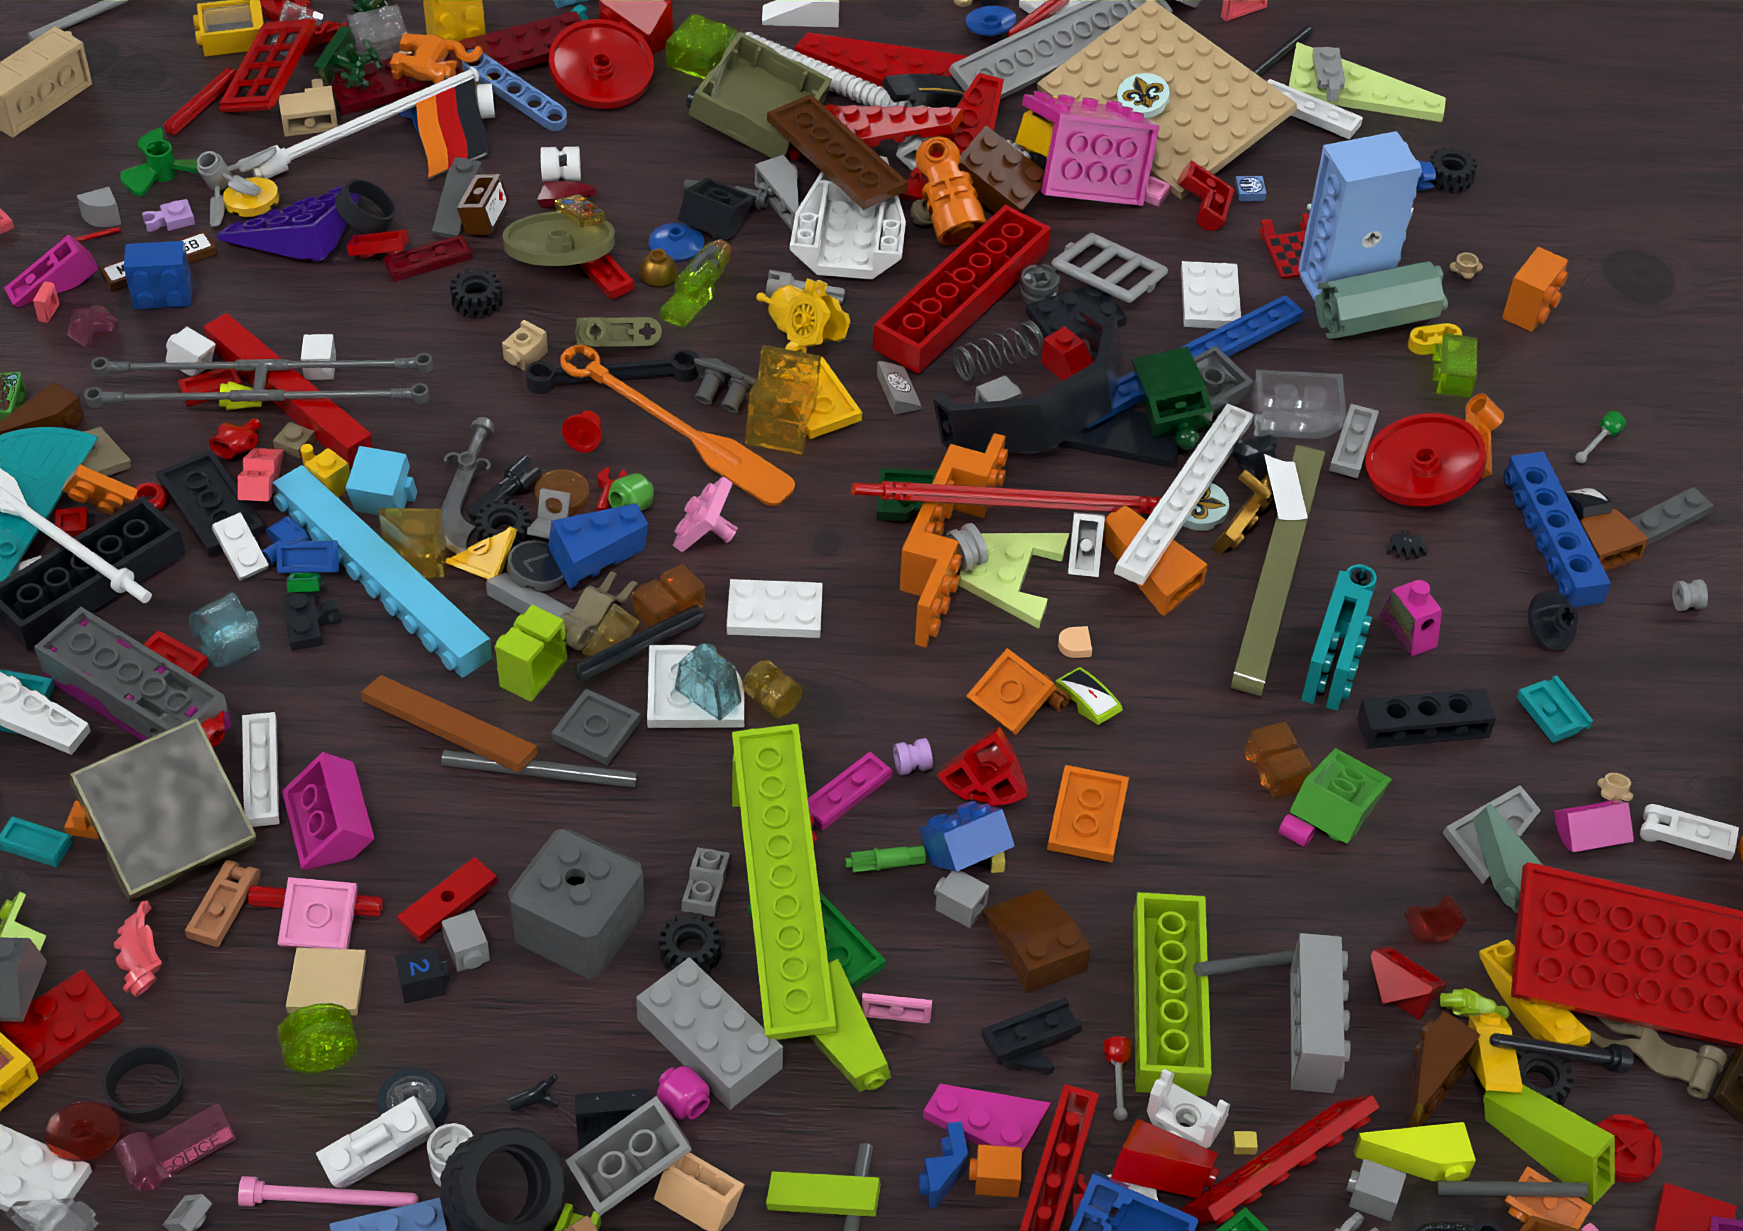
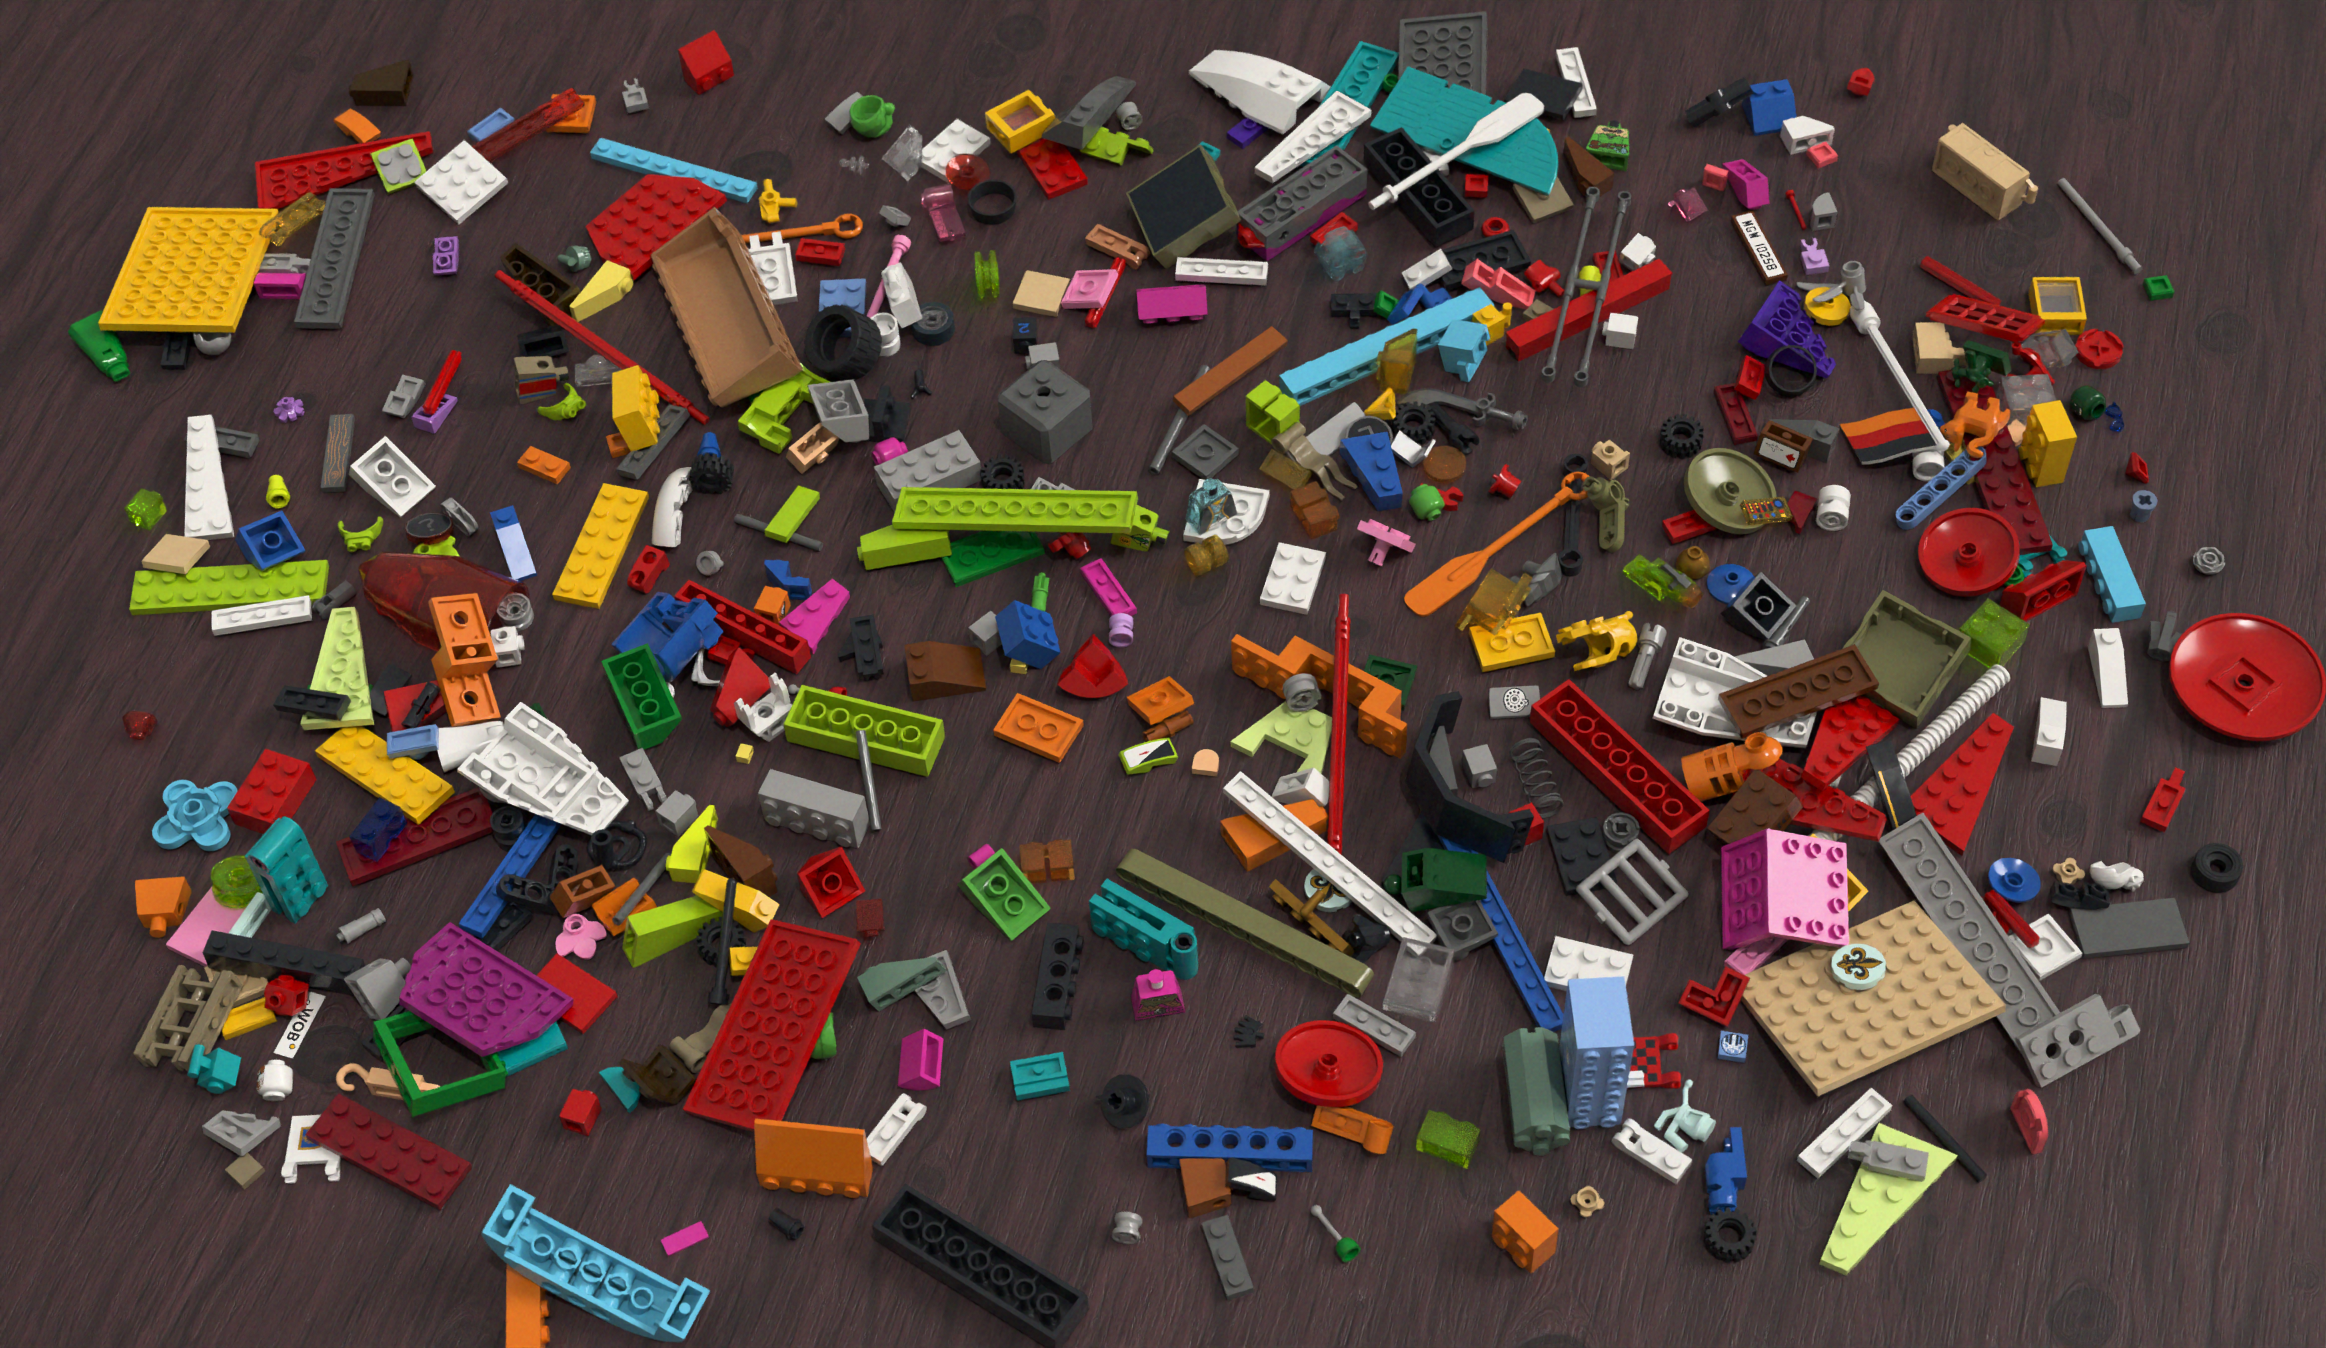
camera: 110 degrees right, 5 degrees up
(98, 489) = (1486, 188): orange plate -> none
(137, 952) = (1091, 203): coral plant -> none
(158, 275) = (1722, 235): blue brick -> none
(159, 165) = (1874, 248): green piece -> none
(447, 899) = (1082, 356): red tile -> none
(637, 643) = (1273, 484): black axle -> none
(896, 1008) = (918, 580): bright pink slope -> none
(1273, 1163) = (713, 755): red plate -> none
(1286, 489) = (1315, 937): white sticker -> none
(1423, 339) = (1486, 1139): yellow beam -> none
(1467, 1002) = (795, 907): lime helmet -> none
(1615, 787) = (950, 1084): tan plate -> none
(1636, 1148) = (653, 982): red tile -> none

